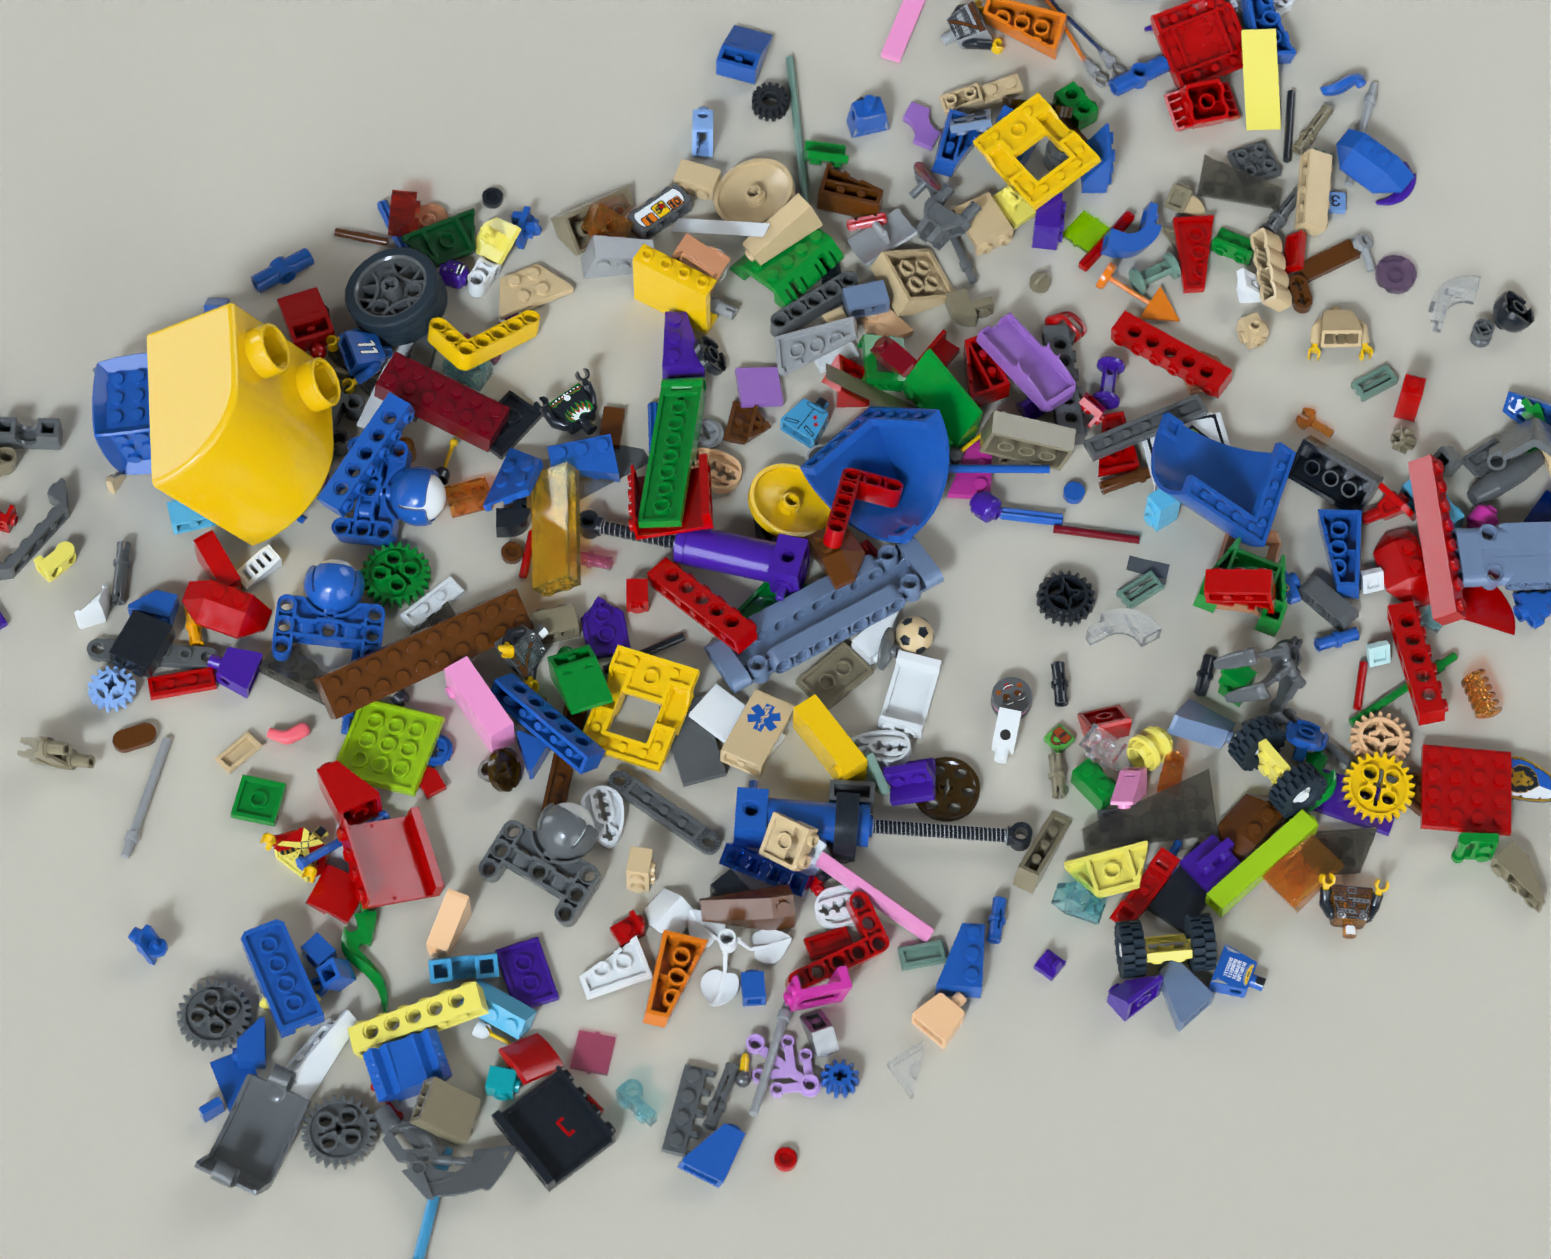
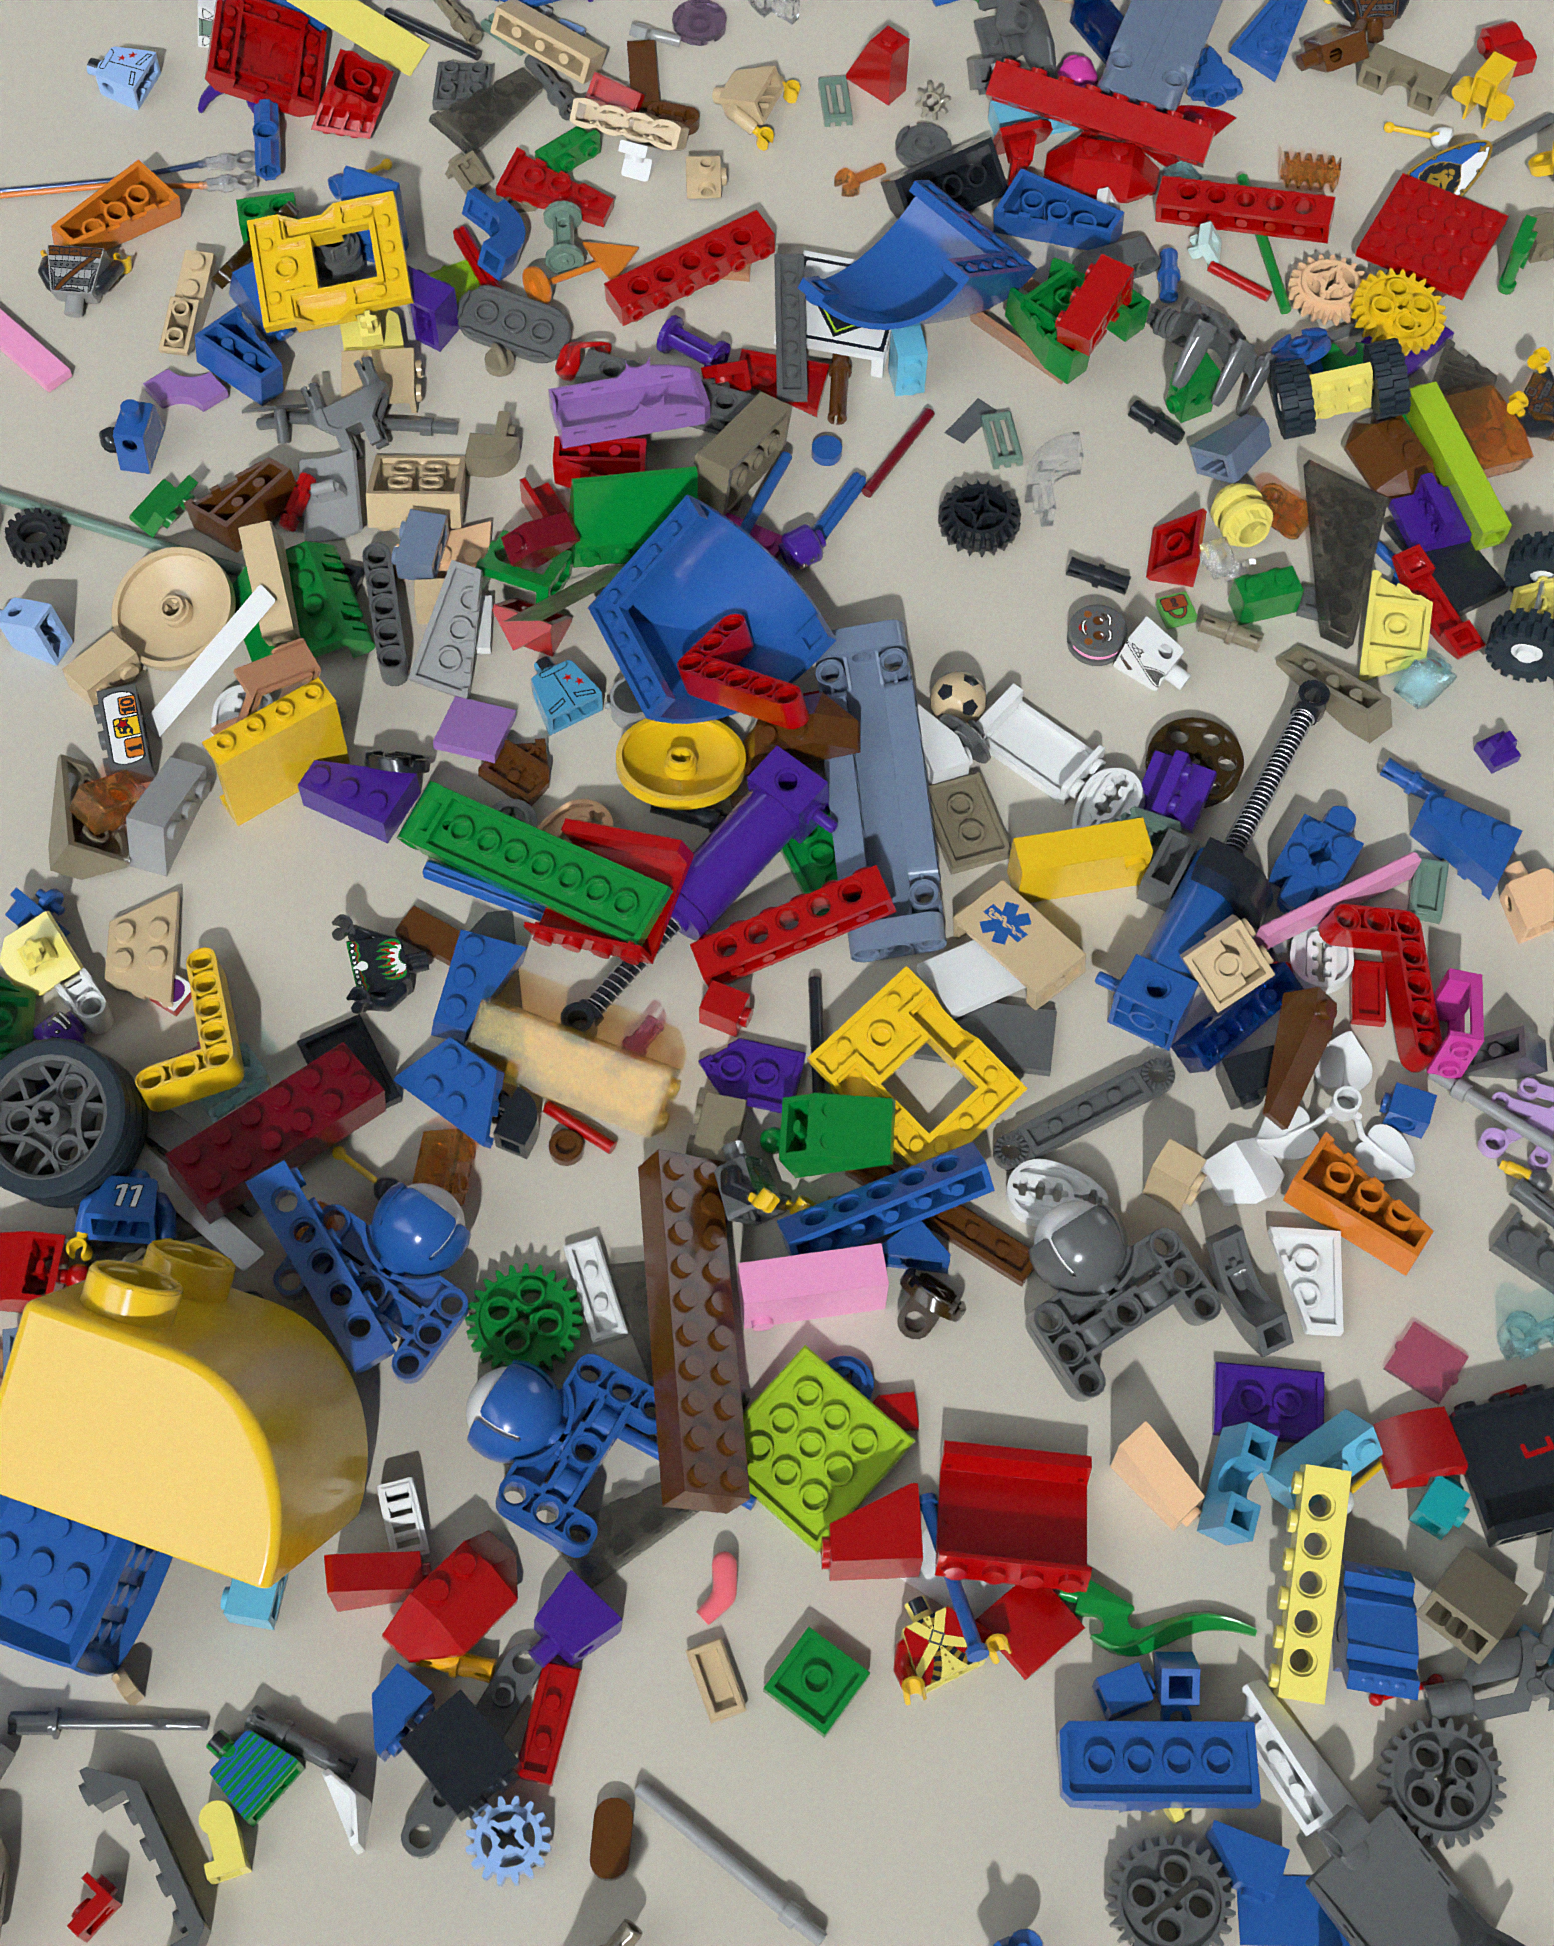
camera: 65 degrees left, 0 degrees up
(83, 458) = (52, 1722): none -> dark grey piece
(94, 557) = (252, 1772): none -> torso
(586, 935) = (1241, 1294): none -> dark grey arch
(628, 928) = (1257, 1236): red bracket -> none
(902, 888) = (1316, 858): none -> blue brick
(971, 122) = (241, 307): sand blue wing -> none
(1029, 409) = (682, 444): dark purple tile -> none
(1070, 276) = (514, 323): none -> dark grey tile
(1129, 133) = (335, 182): none -> blue hinge
(1130, 787) = (1302, 549): bright pink slope -> none
(1194, 208) = (494, 165): tan tile -> none
(1367, 449) = (921, 144): none -> dark grey tile

